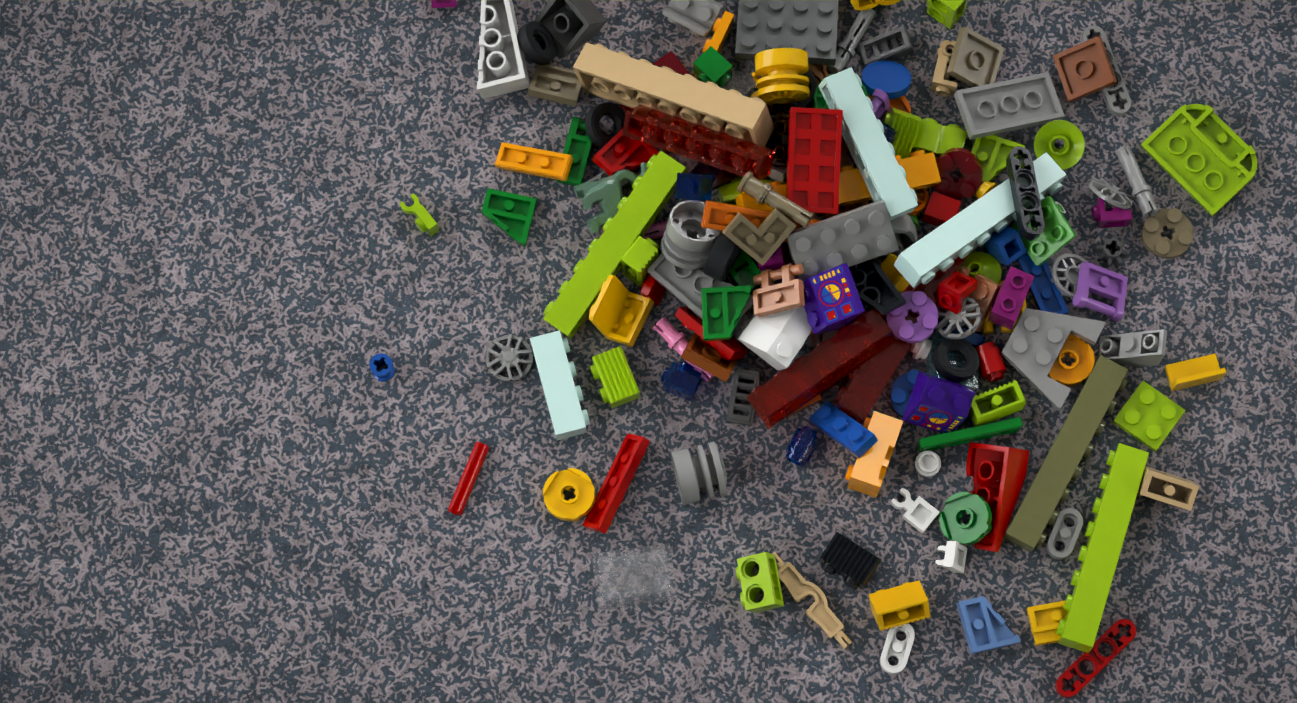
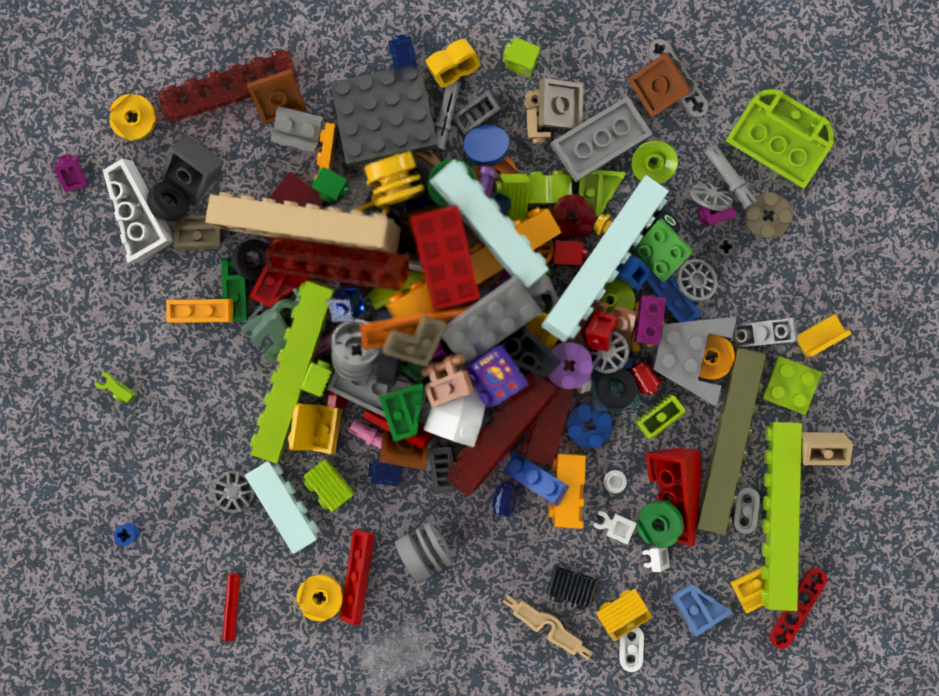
camera: 20 degrees left, 15 degrees up
(510, 213) = (194, 363): green wing -> none
(765, 194) = (410, 302): dark tan pin -> none
(765, 580) = (506, 627): lime brick -> none
(938, 403) = (611, 431): dark purple slope -> none
(970, 435) = (644, 448): green tile -> none
(1025, 193) = (642, 222): black beam -> none
(1104, 284) = (724, 280): medium lavender plate -> none

